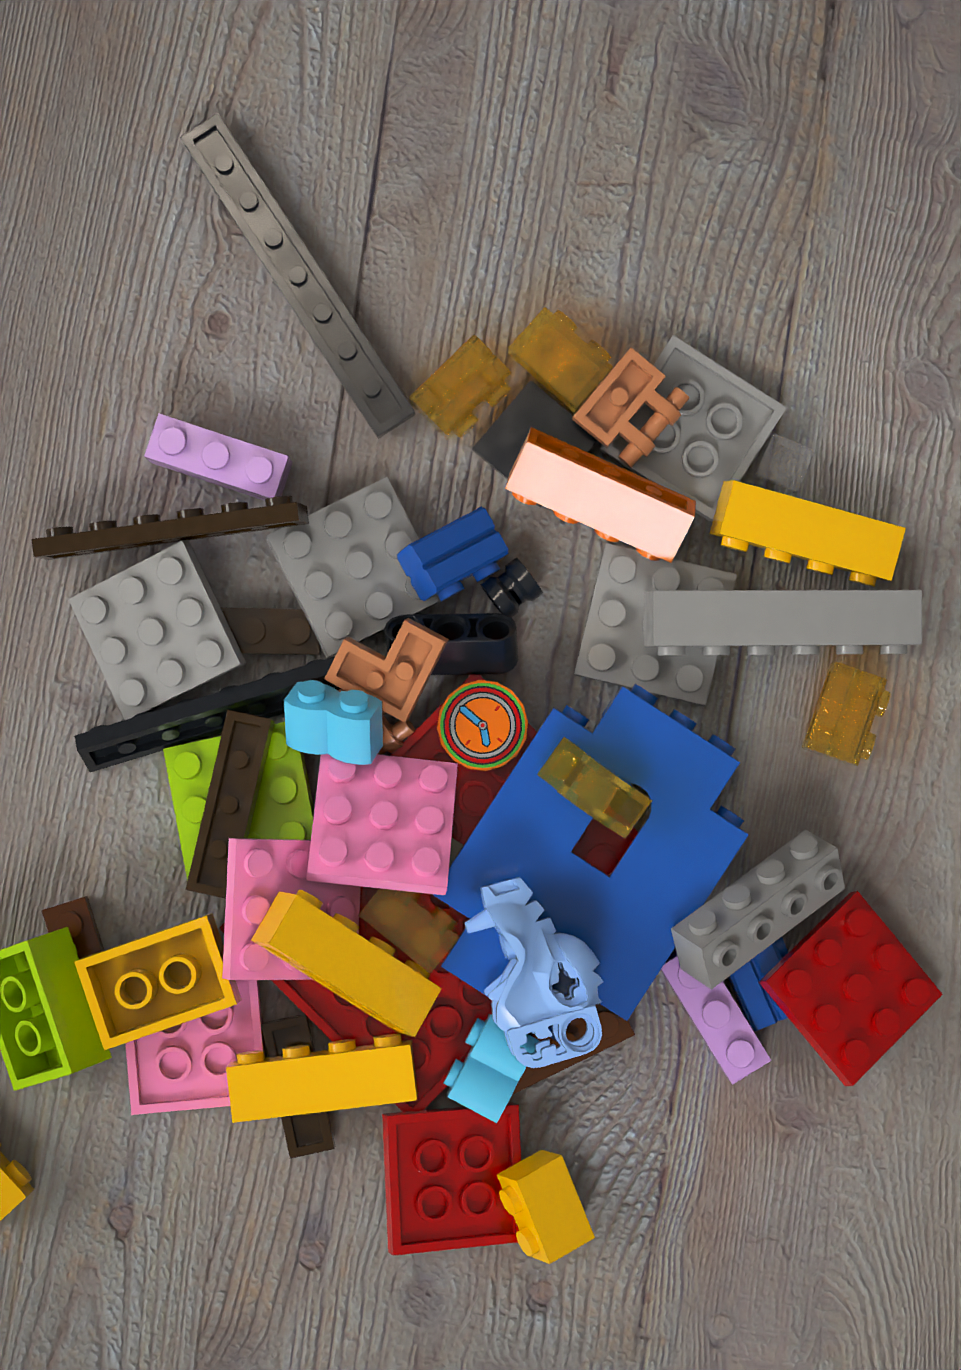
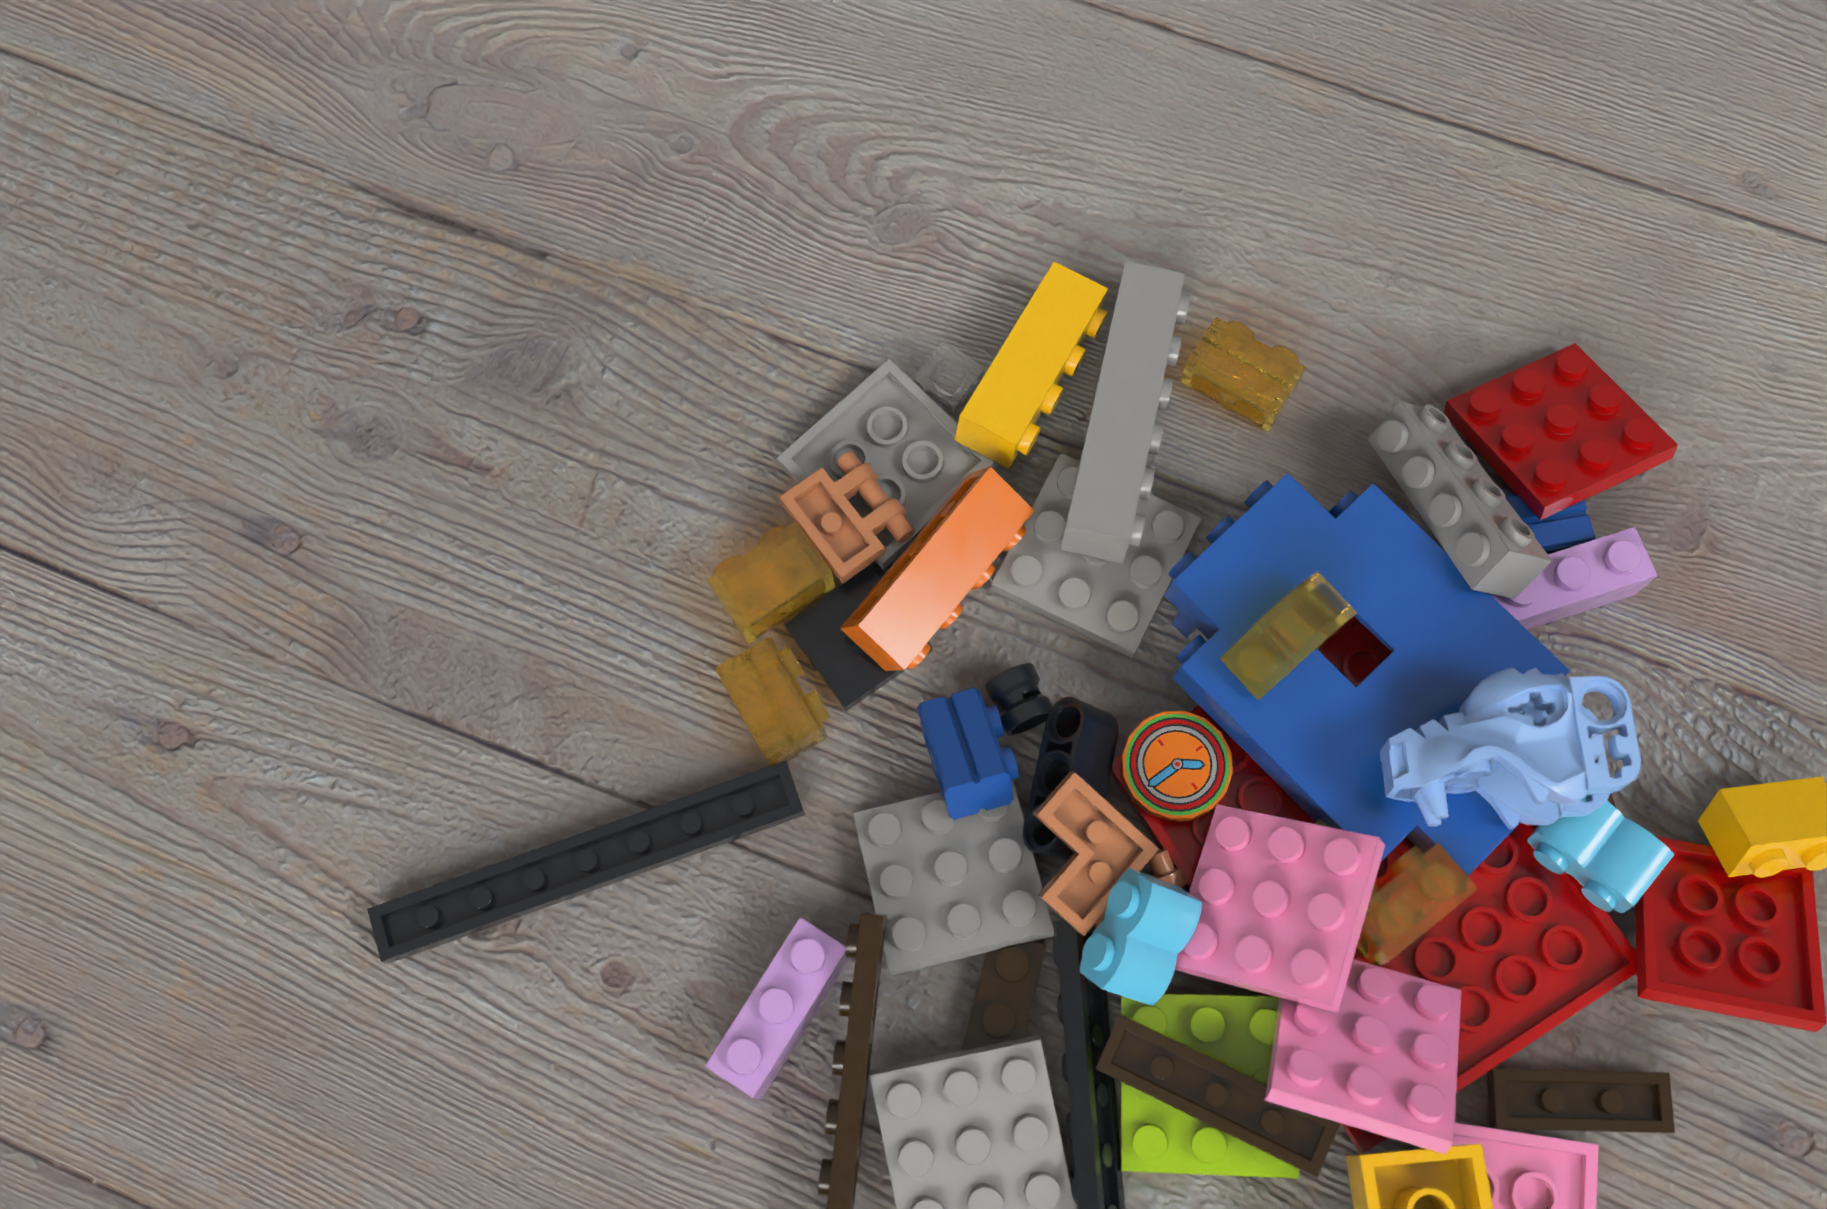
camera: 70 degrees left, 15 degrees down
(321, 1079) = (1585, 1063): yellow brick -> none
(346, 962) = (1447, 990): yellow brick -> none

